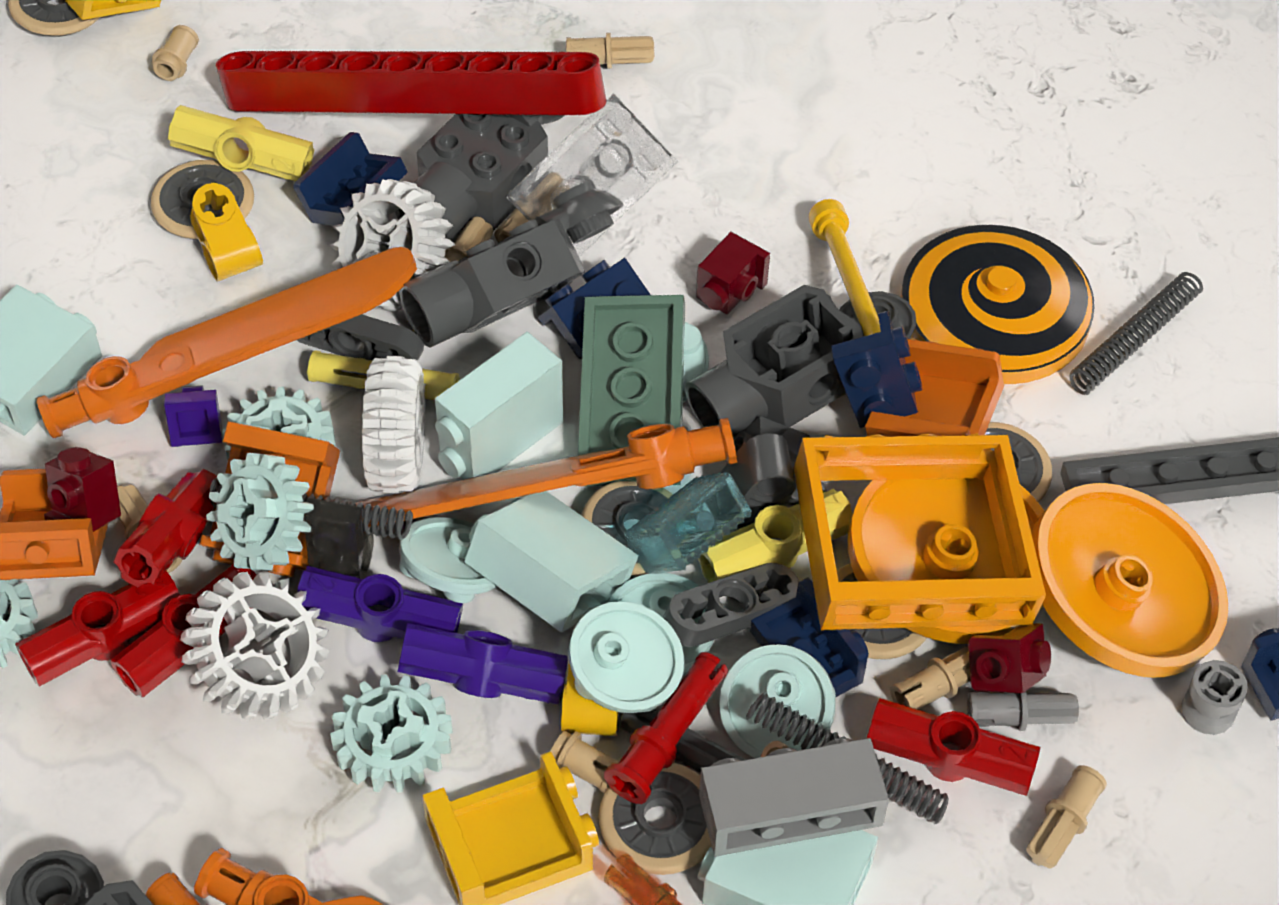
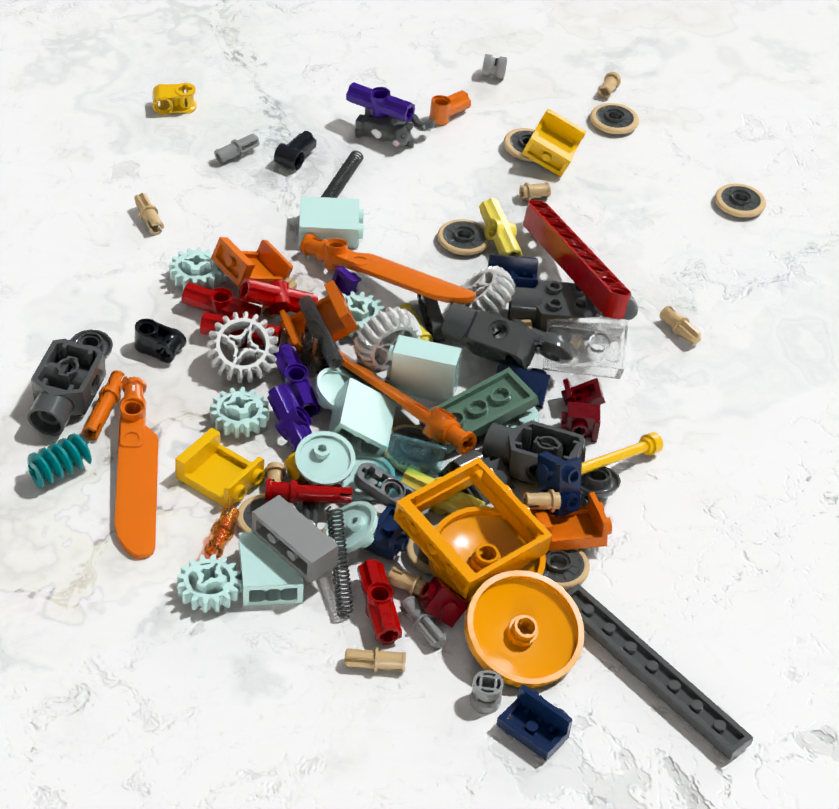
camera: 55 degrees right, 10 degrees down
(82, 487) = (270, 260): dark red brick -> none
(118, 771) = (156, 340): none -> black piece
(226, 239) = (445, 247): yellow piece -> none
(260, 512) = (297, 310): light aqua gear -> none
(677, 242) = (586, 392): none -> dark red bracket
(909, 402) = (543, 501): none -> tan pin
(1001, 295) = (663, 530): dish -> none
(1089, 378) = (692, 586): dark grey piece -> none

